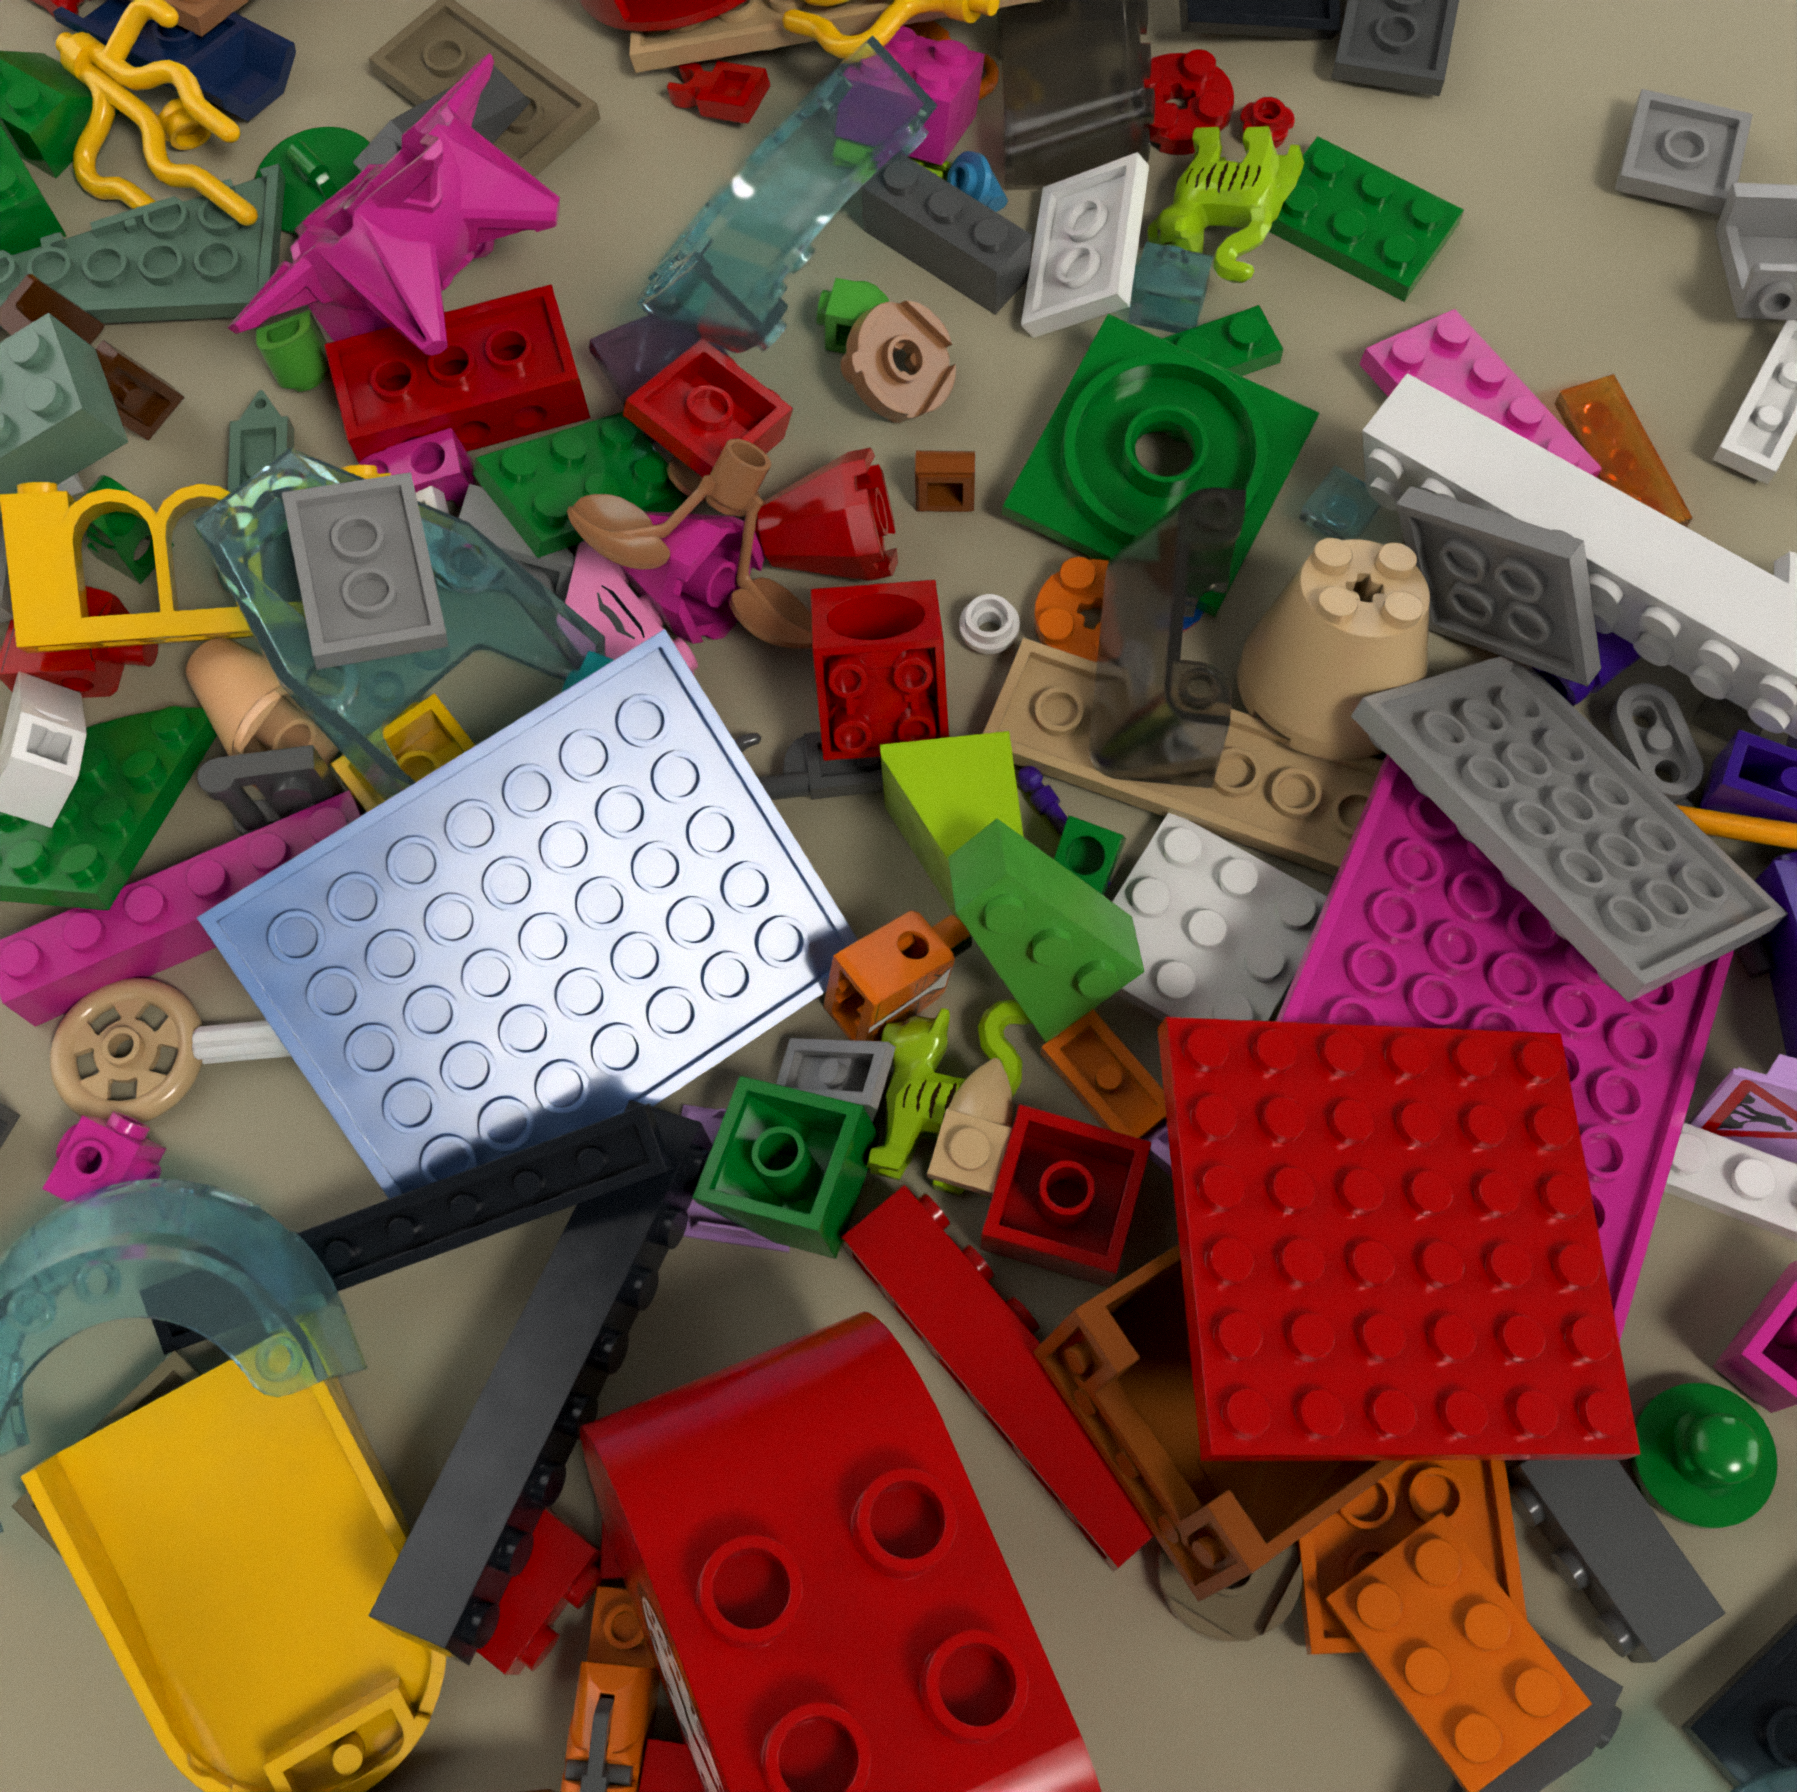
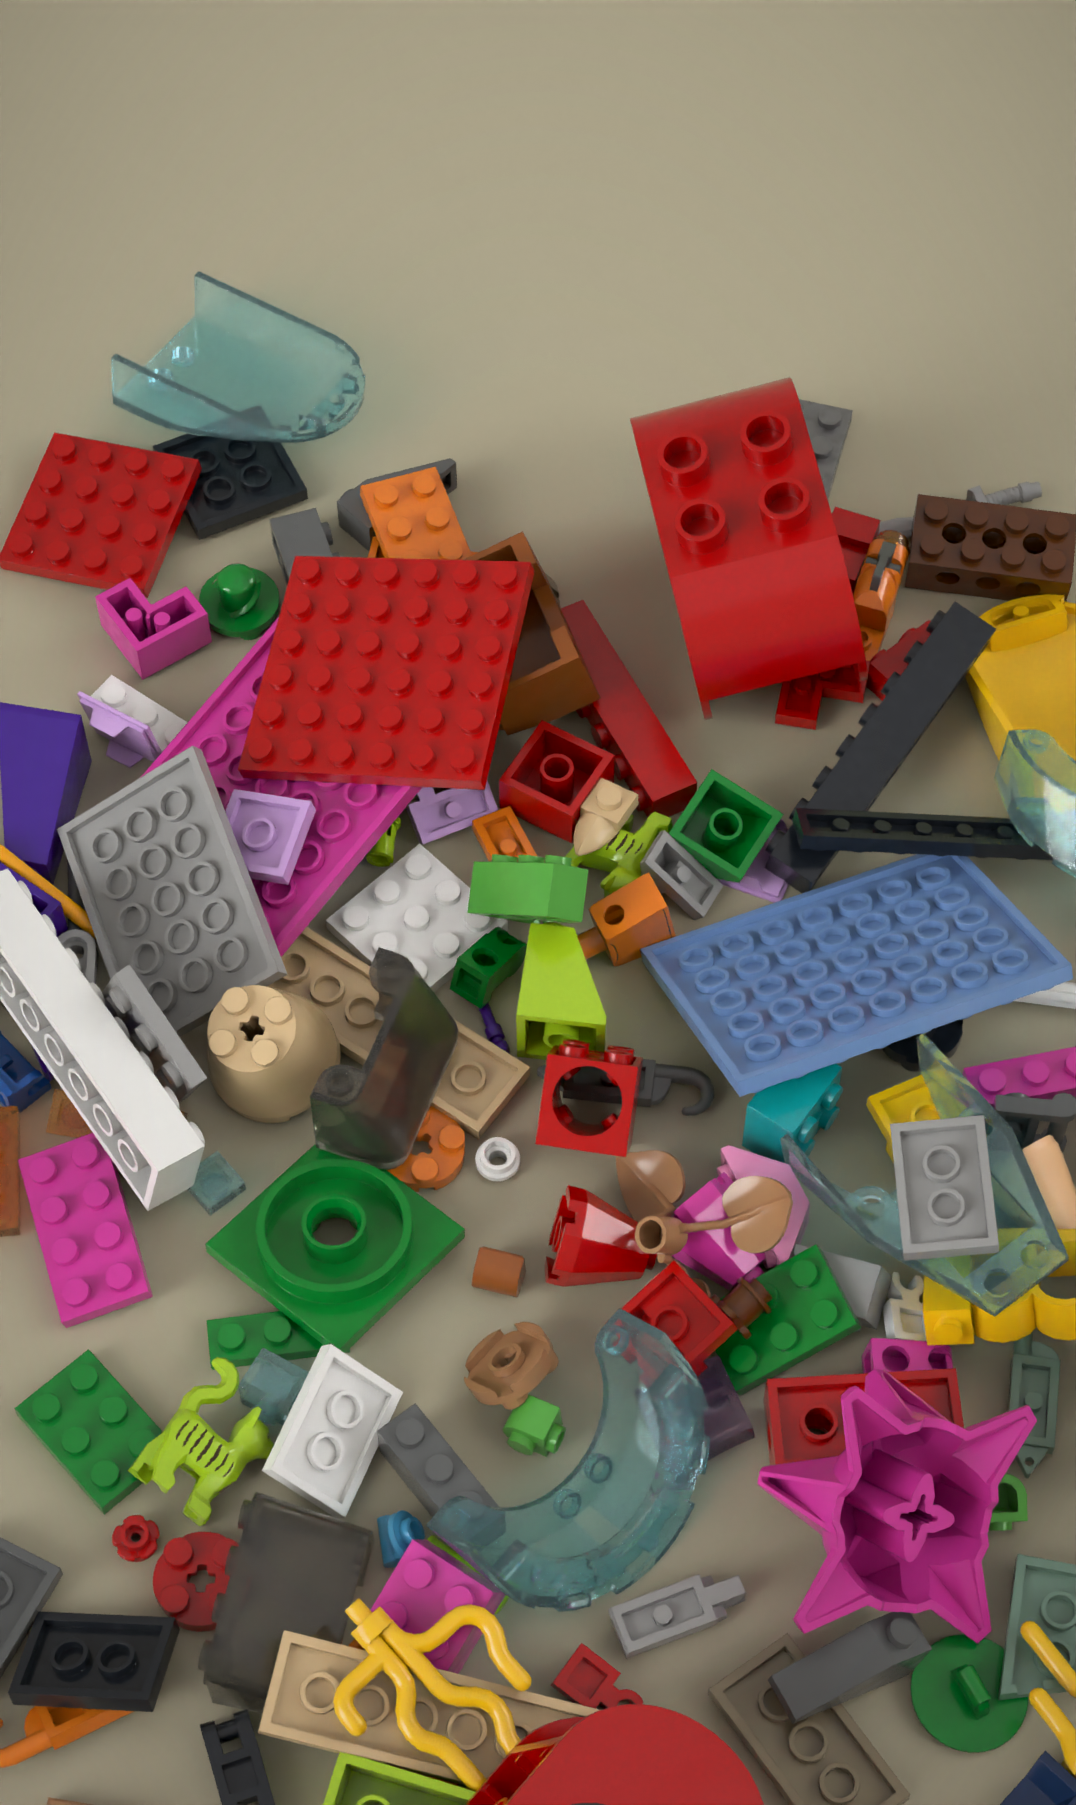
camera: 170 degrees left, 10 degrees down
(623, 448) = (744, 1304): none -> reddish brown brick
(648, 175) = (673, 1612): none -> light grey hinge
(1472, 925) = (269, 832): none -> lavender plate

